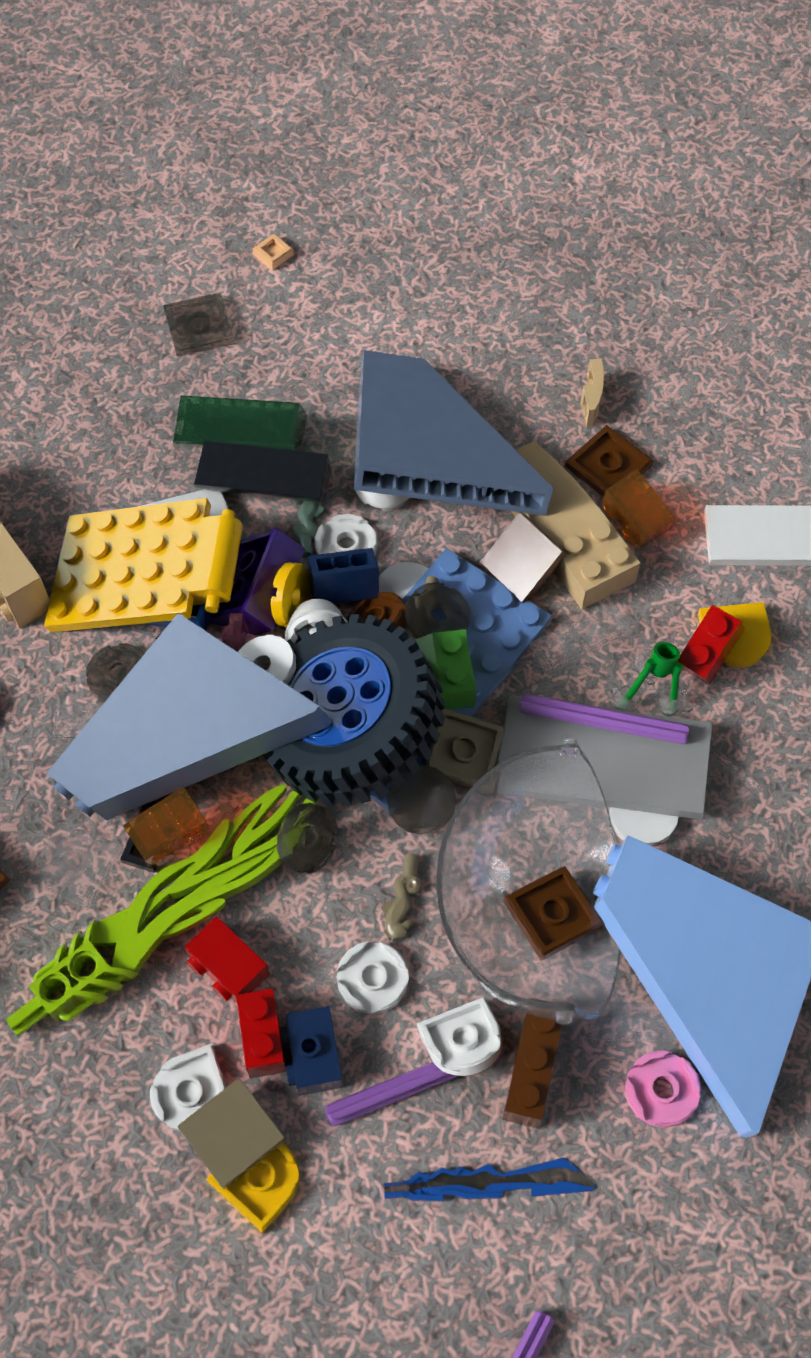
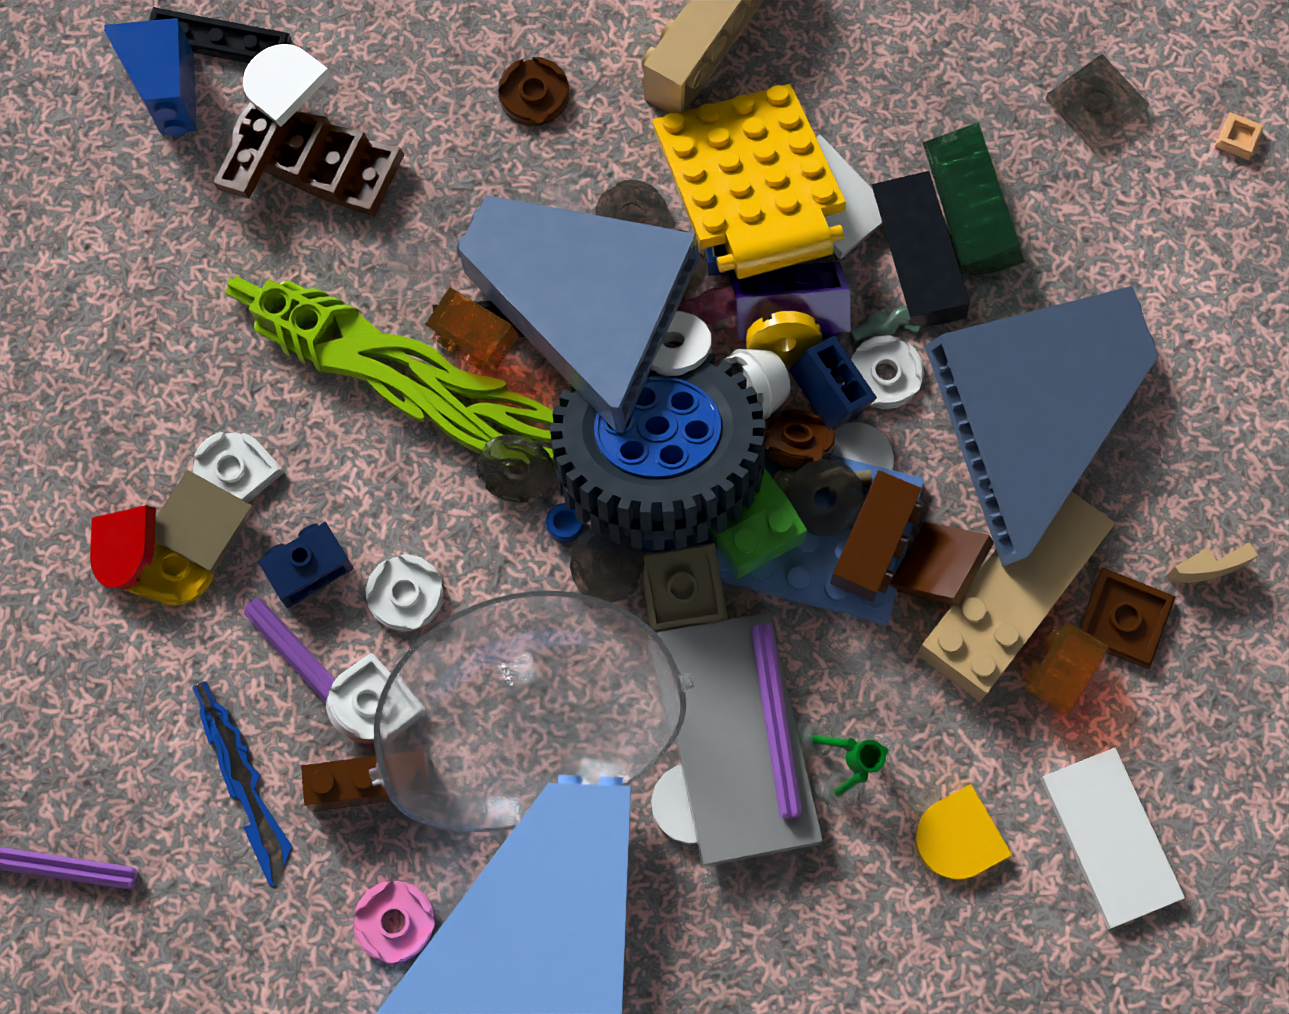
camera: 70 degrees right, 10 degrees up
(223, 1215) = (122, 546): none -> red tile
(226, 961) = (364, 447): red brick -> none
(261, 1033) = (303, 504): red brick -> none
(366, 823) = (563, 524): none -> blue tile
(398, 909) = (484, 589): dark tan animal -> none
(486, 589) = (877, 536): none -> reddish brown brick
(553, 913) = (530, 743): reddish brown tile -> none
(711, 644) = (917, 807): red brick -> none

